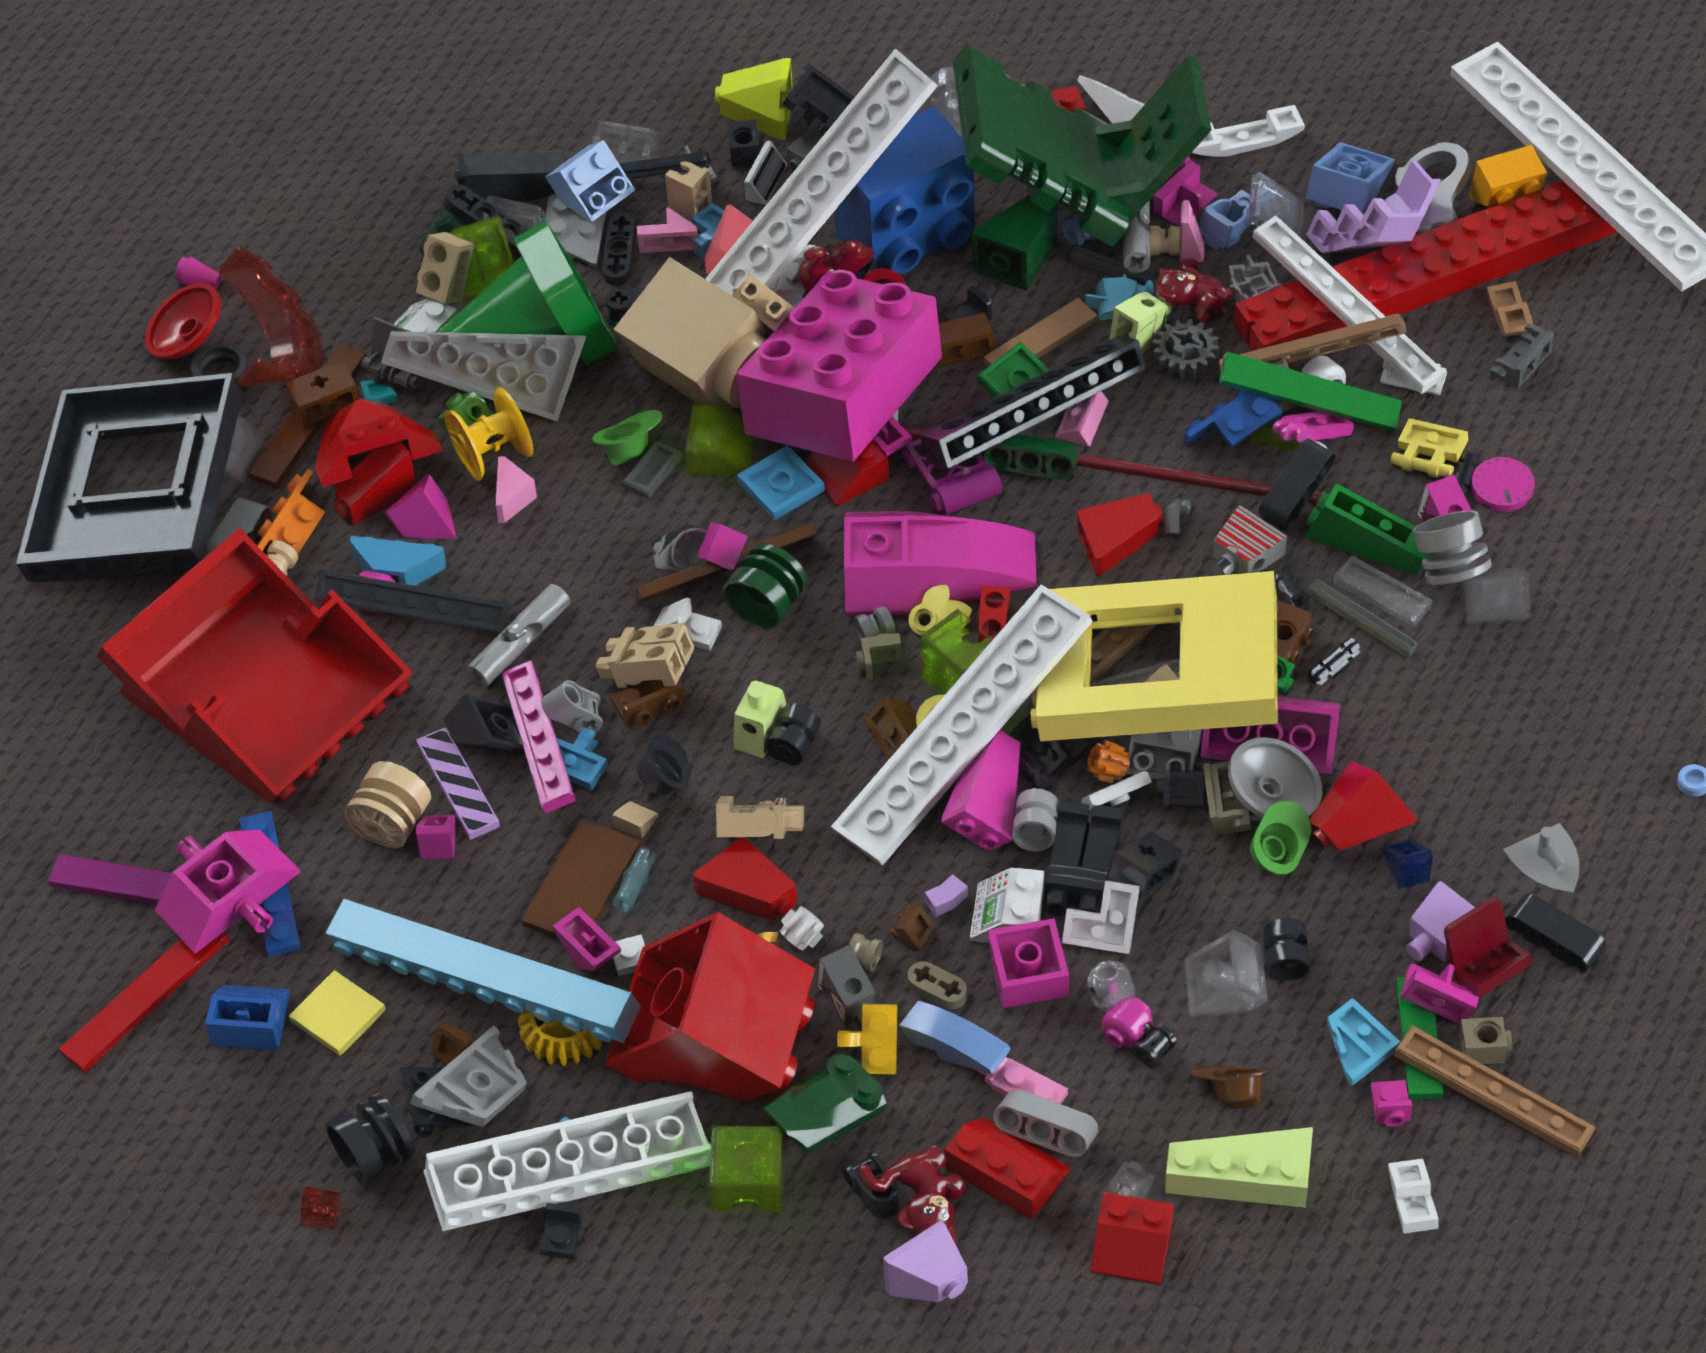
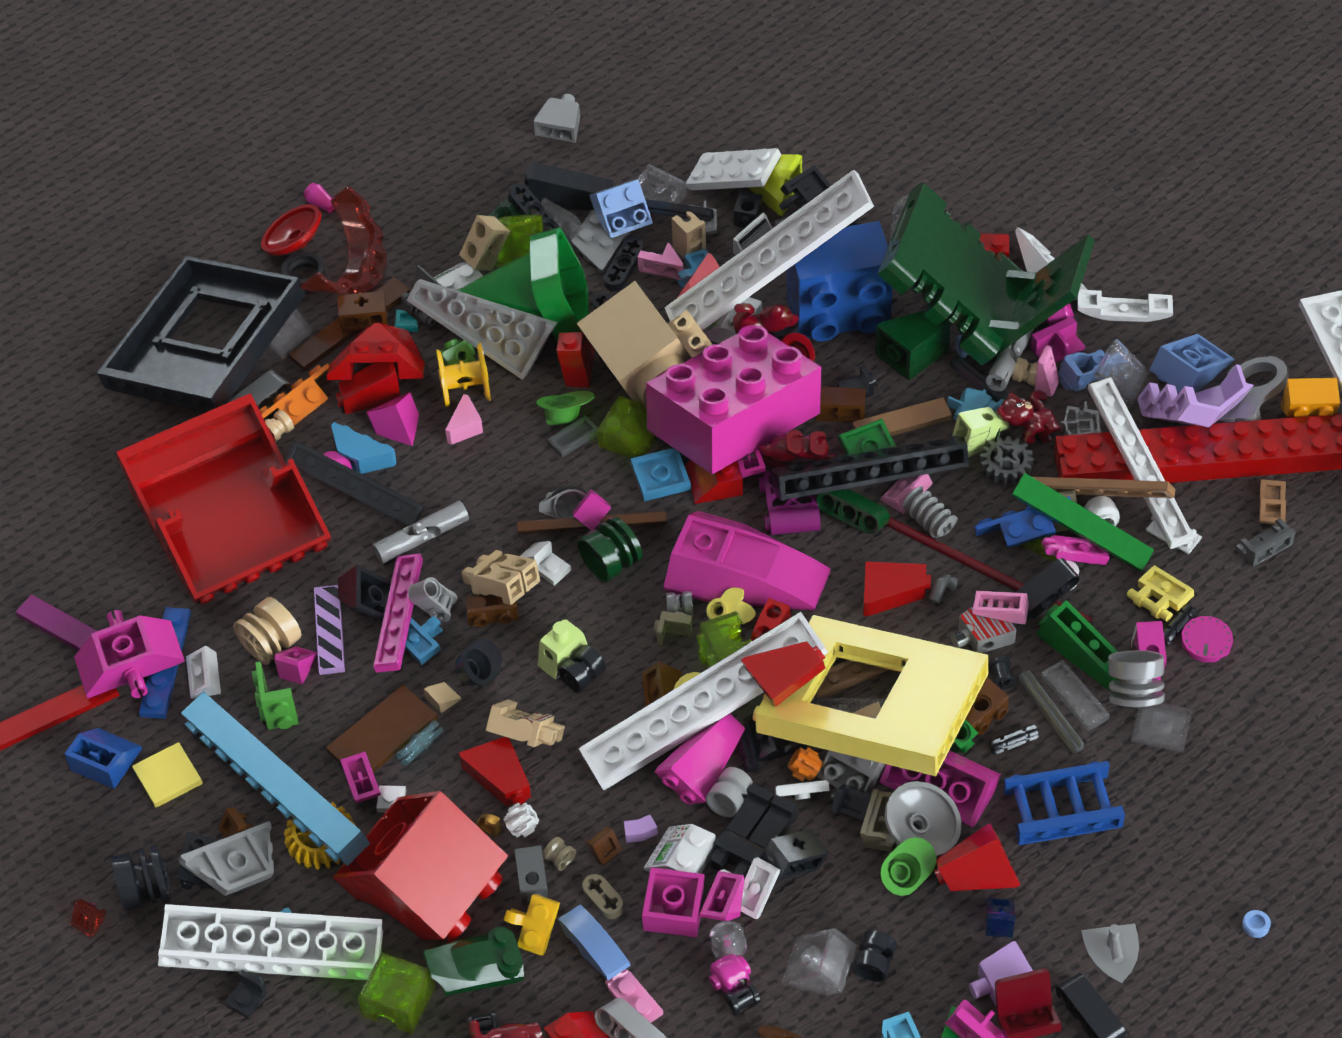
camera: 20 degrees right, 0 degrees up
(323, 881) = (203, 672): none -> white slope
(440, 892) = (275, 706): none -> bright green bracket
(458, 97) = (558, 119): none -> light grey torso
(619, 376) = (575, 358): none -> red slope
(707, 98) = (733, 169): none -> white plate
(938, 398) = (795, 445): none -> dark red animal
(1053, 654) = (784, 669): none -> red slope
(1085, 937) = (724, 897): none -> dark pink slope
(1122, 436) = (929, 513): none -> light grey piece
(1265, 503) = (1008, 614): none -> bright pink slope
(1426, 741) = (1069, 825): none -> blue fence

